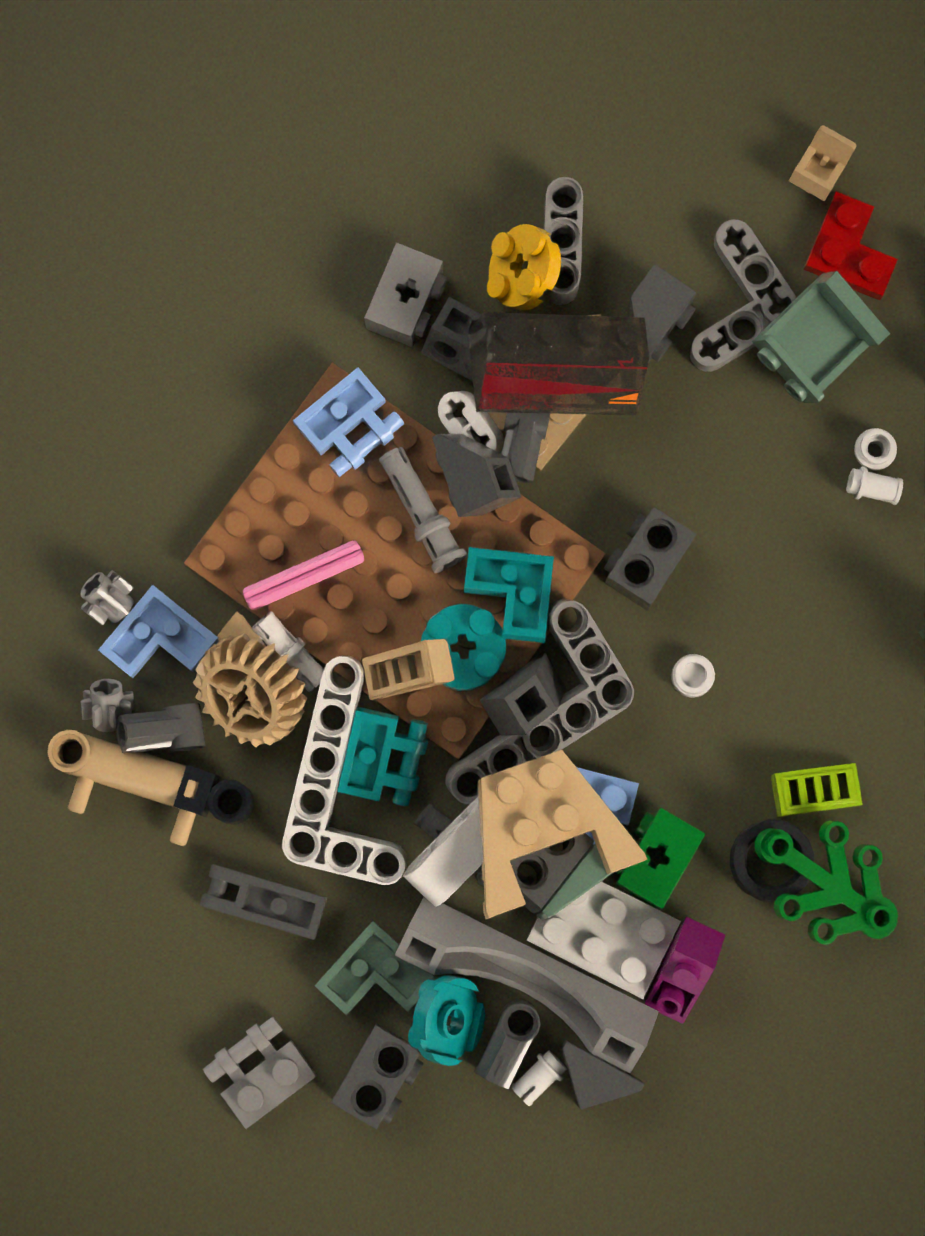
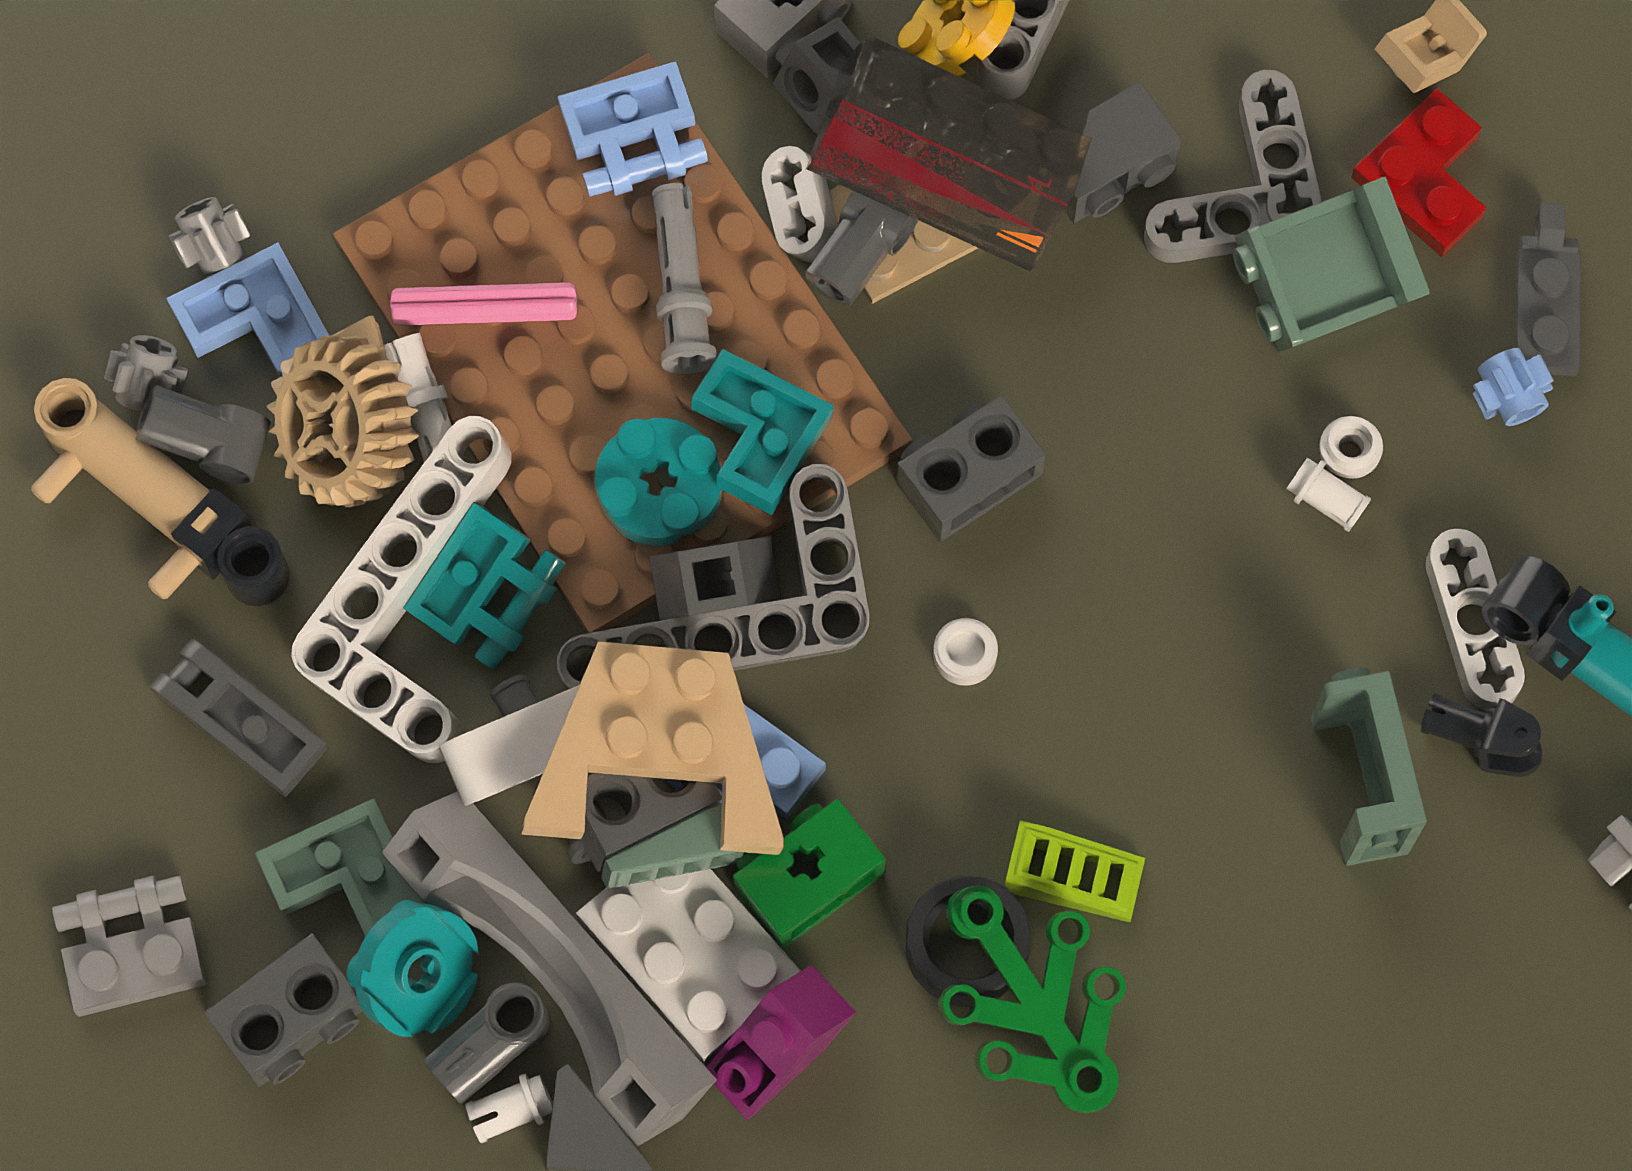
camera: 25 degrees right, 10 degrees down
(432, 663) = (561, 483): tan slope -> none
(475, 475) = (772, 260): dark grey slope -> none

